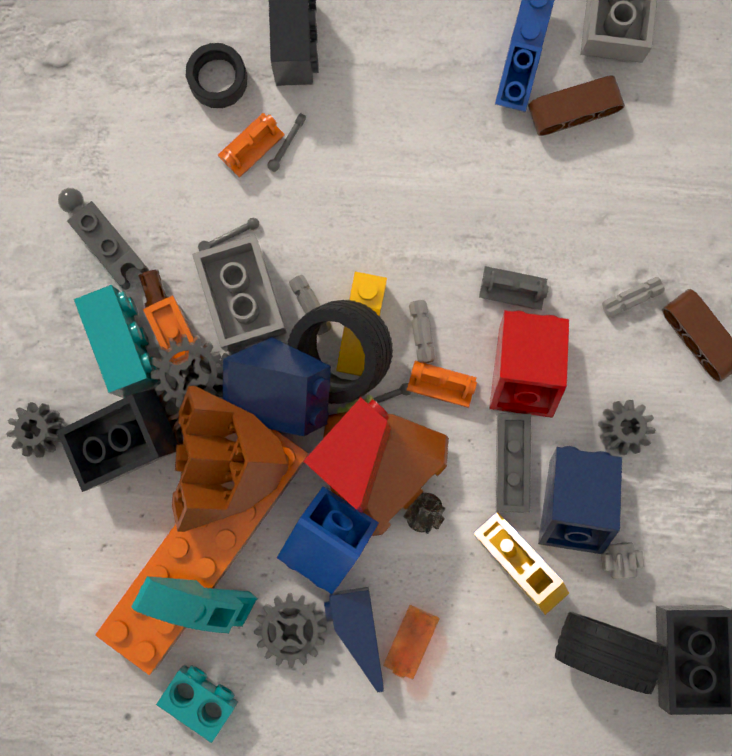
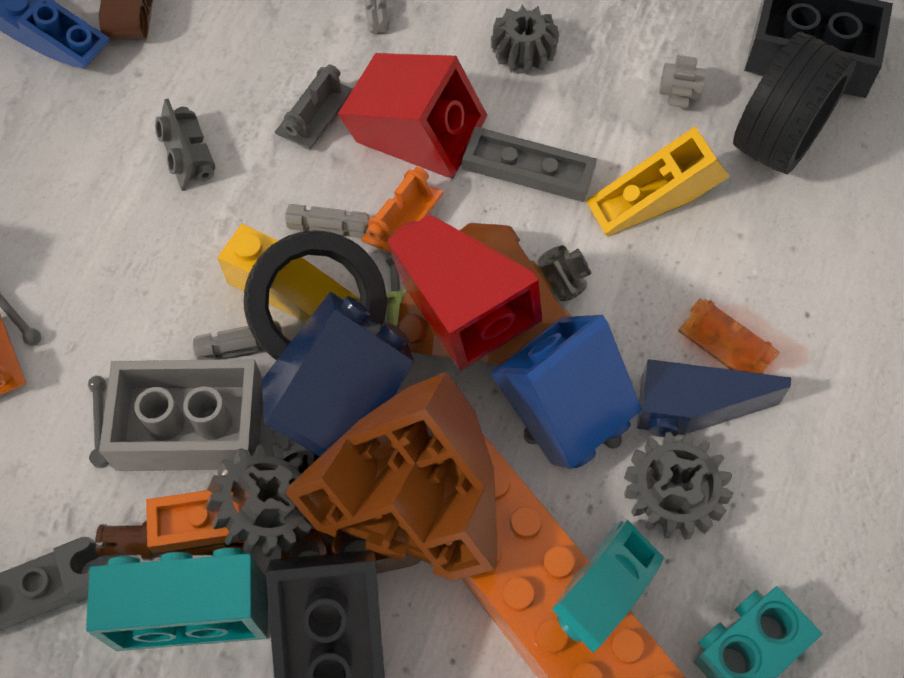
camera: 70 degrees left, 20 degrees down
(461, 196) = (177, 132): none -> dark grey hinge
(581, 500) = (600, 101): dark blue slope -> none

